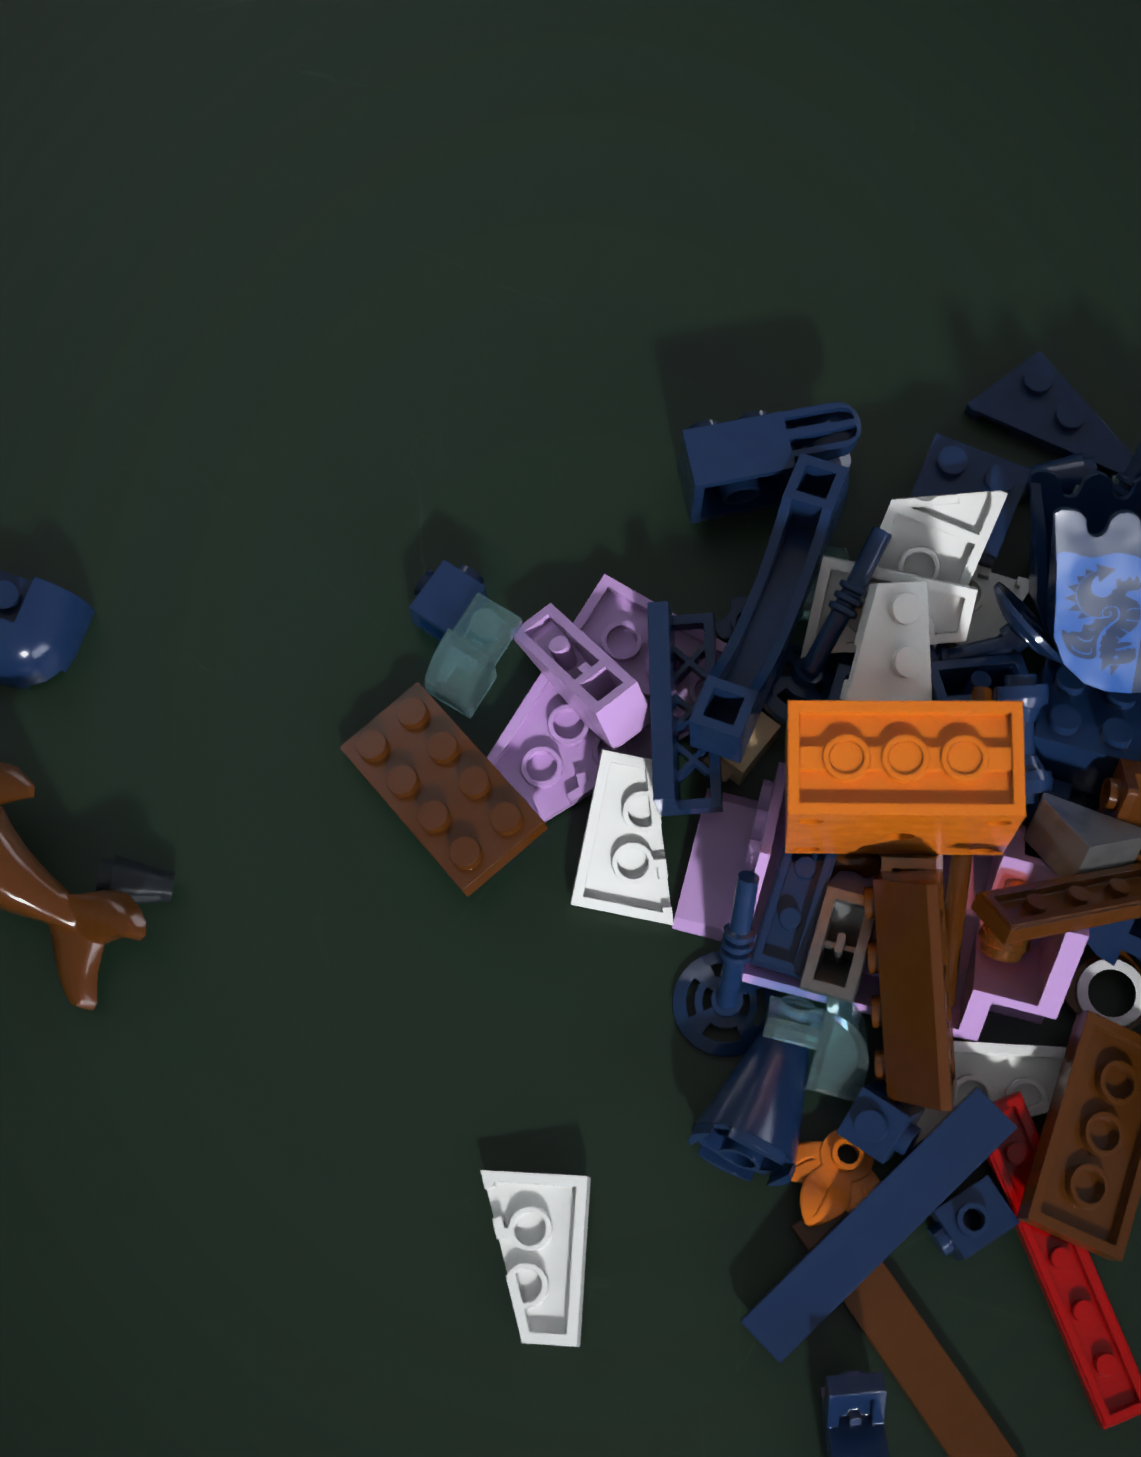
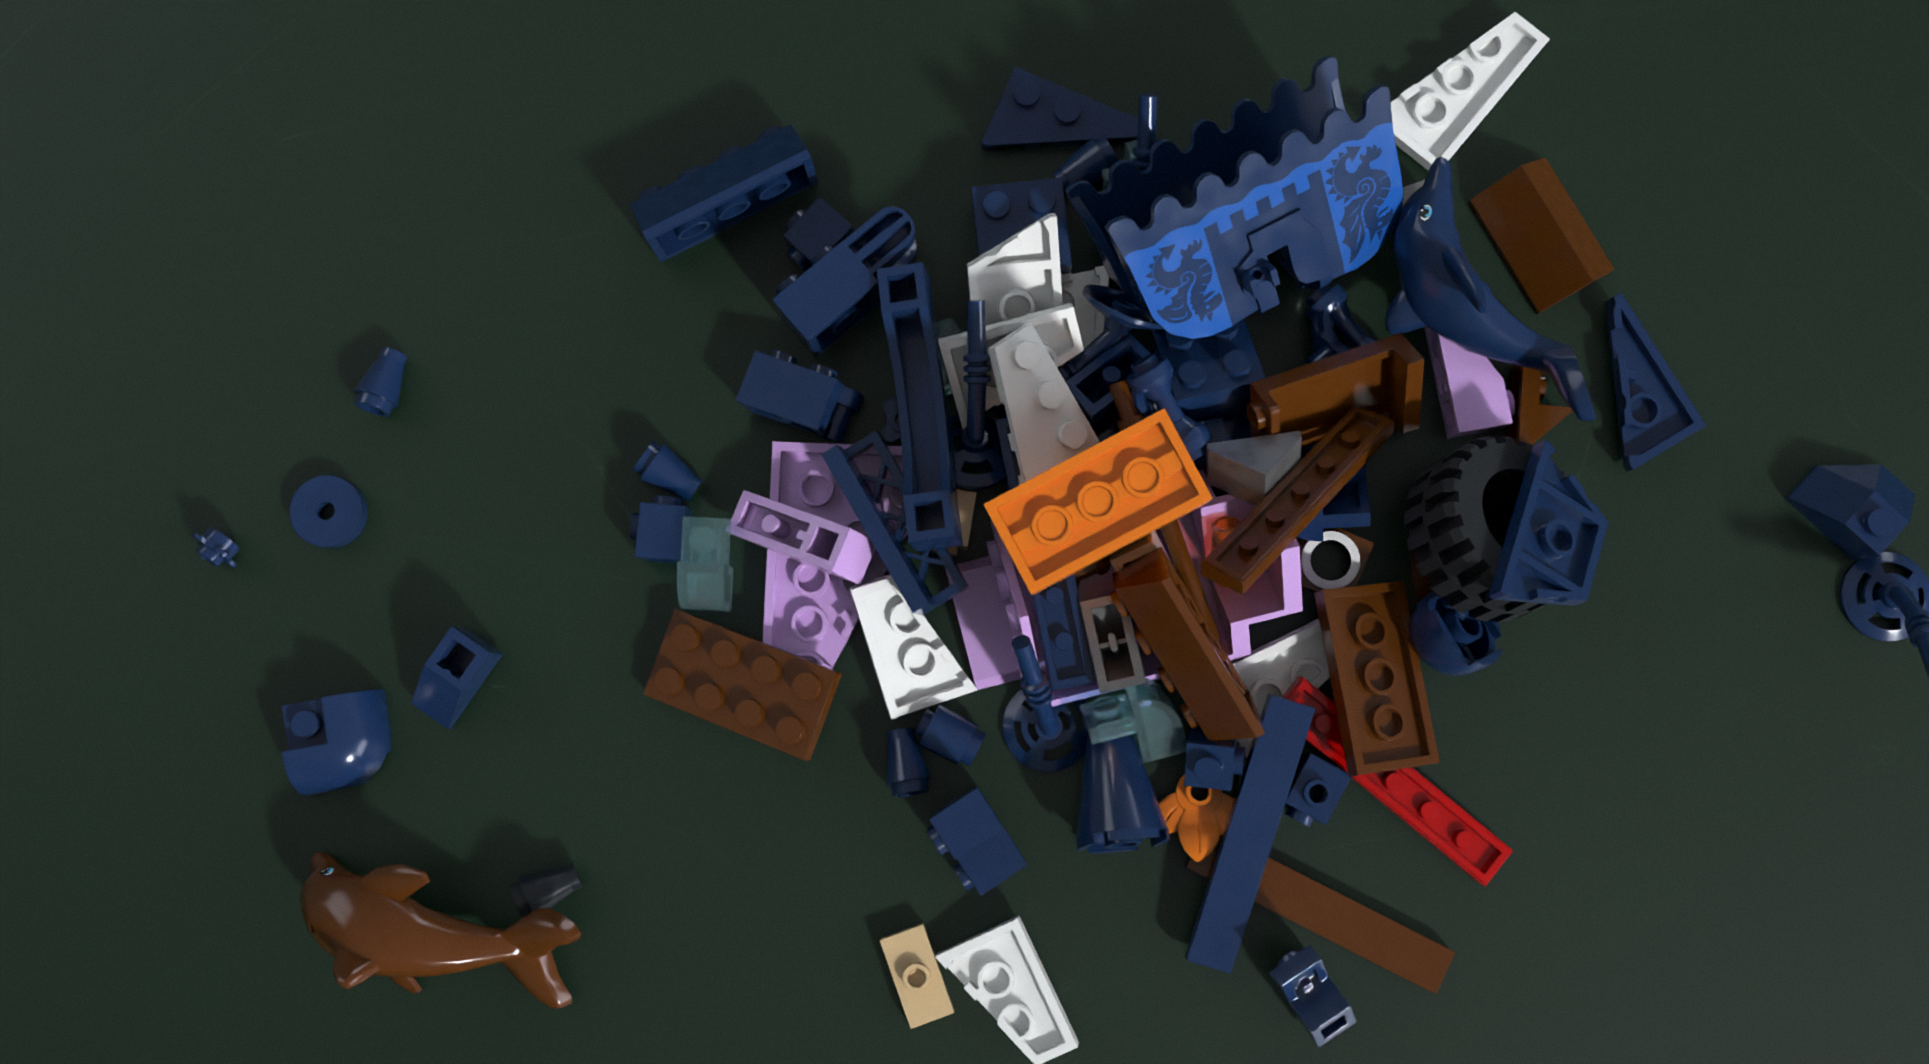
camera: 30 degrees left, 10 degrees up
(20, 394) = (216, 547): none -> dark blue plate
(141, 398) = (308, 508): none -> dark blue piece
(168, 628) = (454, 675): none -> dark blue slope
(262, 328) = (381, 385): none -> dark blue cone
(451, 1181) = (917, 975): none -> tan plate
(484, 547) = (666, 471): none -> dark blue cone
(559, 960) = (905, 764): none -> dark blue cone
(592, 1070) = (977, 840): none -> dark blue brick
(621, 954) = (950, 735): none -> dark blue brick
(655, 543) = (799, 395): none -> dark blue hinge
(691, 321) = (724, 192): none -> dark blue slope
(755, 392) = (812, 231): none -> dark blue brick

